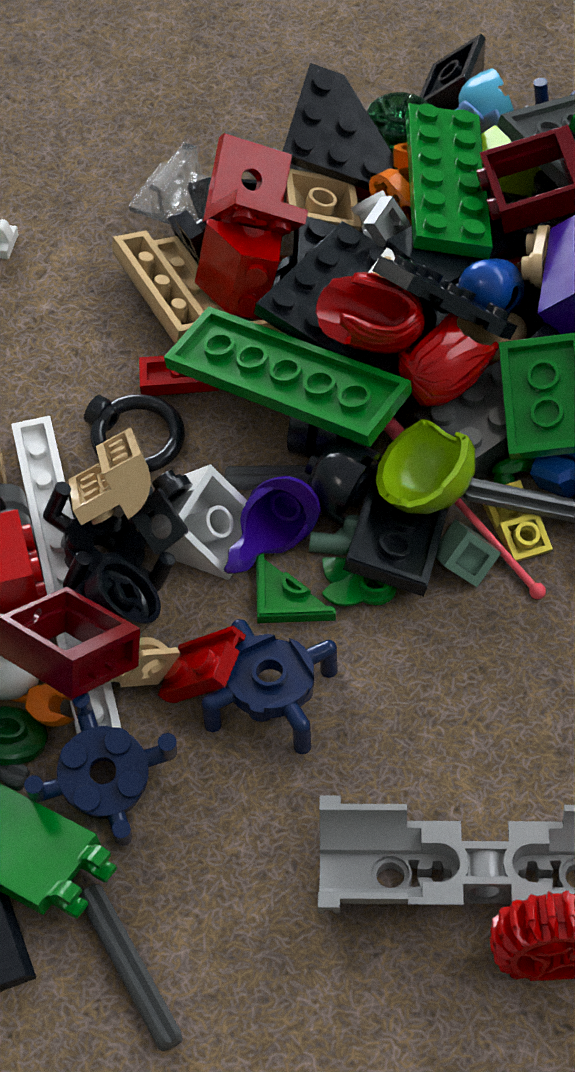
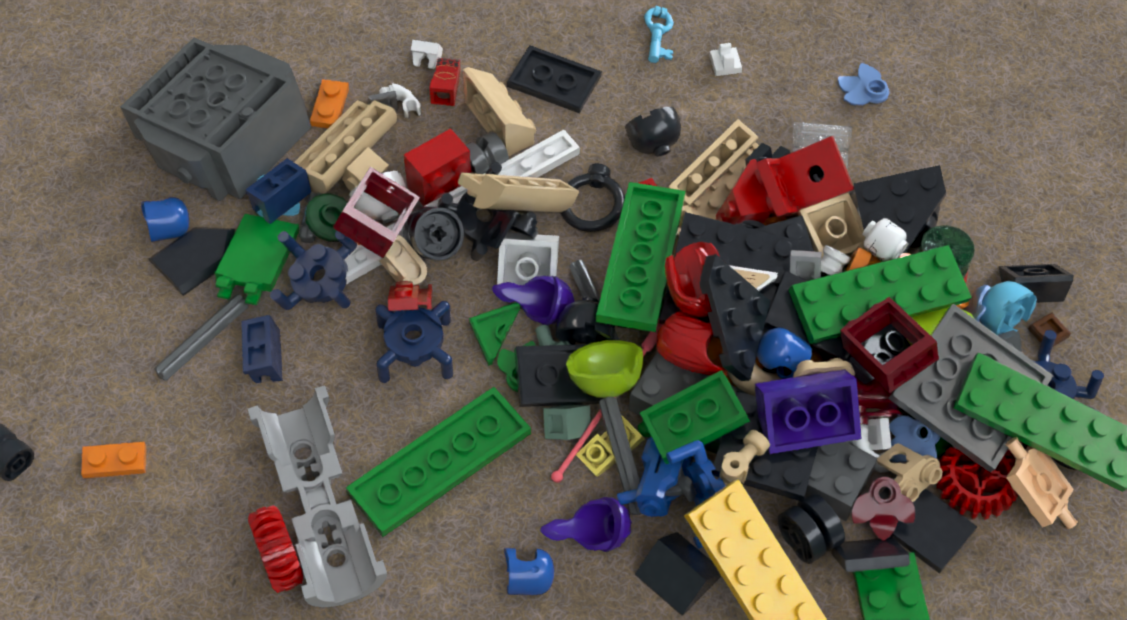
camera: 65 degrees right, 5 degrees up
(74, 330) = (655, 132): none -> black cylinder
(110, 131) = (861, 87): none -> medium blue plate
(197, 878) = (261, 349): none -> dark blue hinge
(376, 150) = (884, 240): none -> white head
(471, 715) = (438, 461): none -> green plate
(520, 92) = (1049, 322): none -> reddish brown tile

